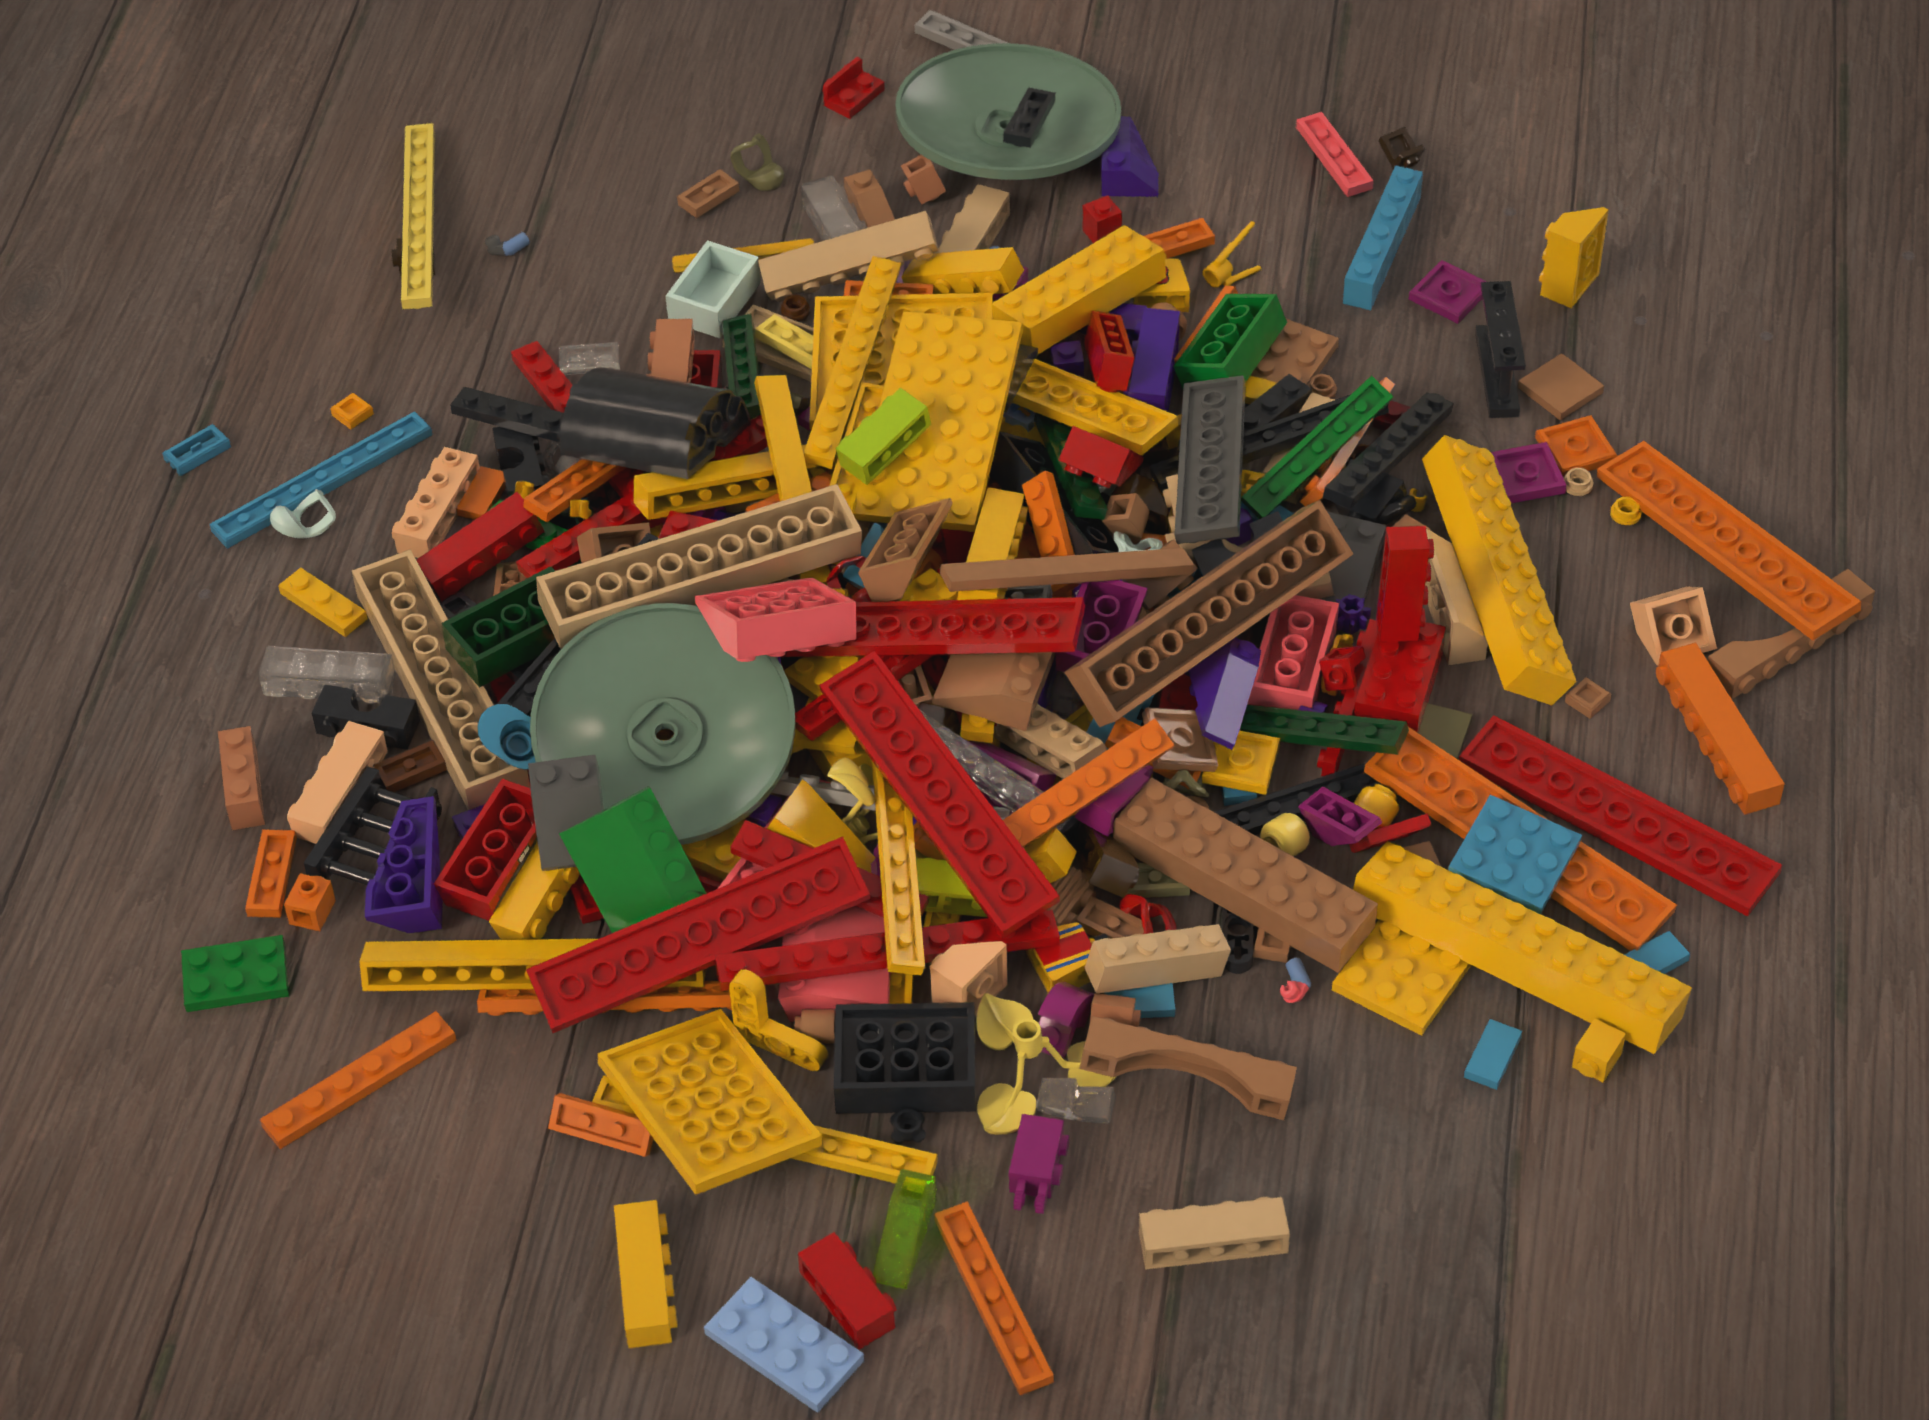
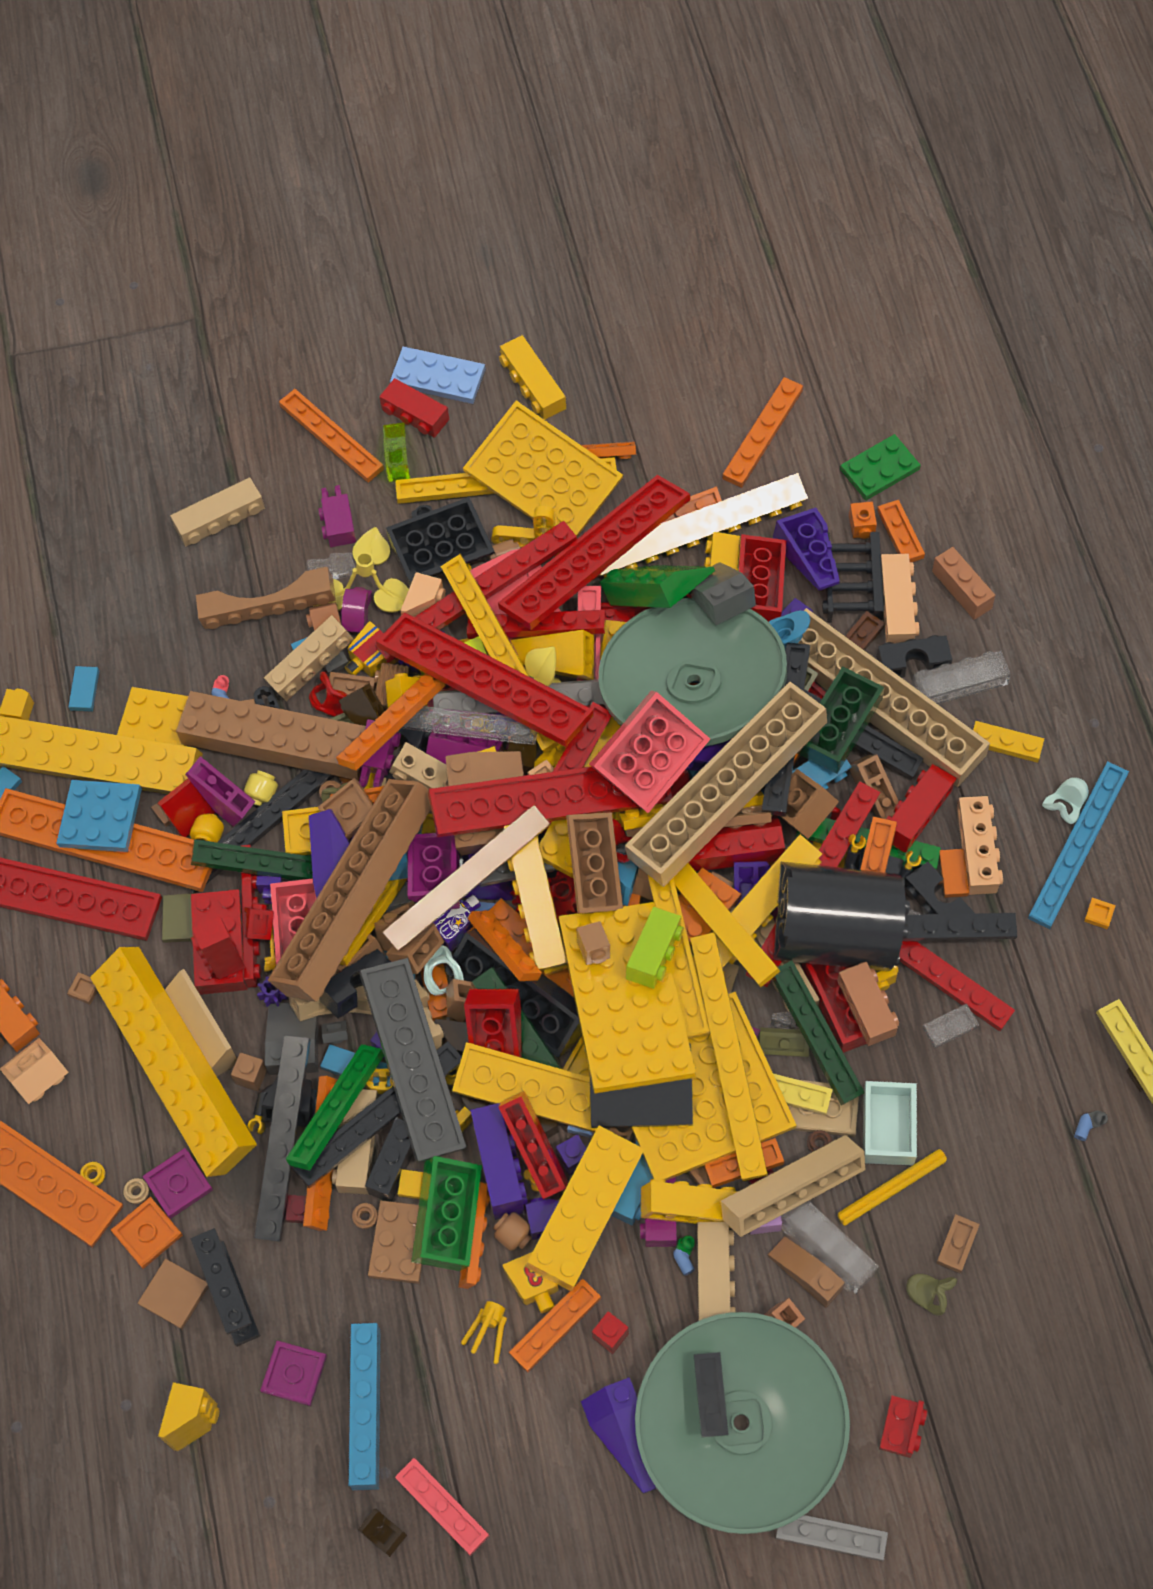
camera: 160 degrees right, 15 degrees up
(950, 458) = (593, 943): none -> medium nougat brick

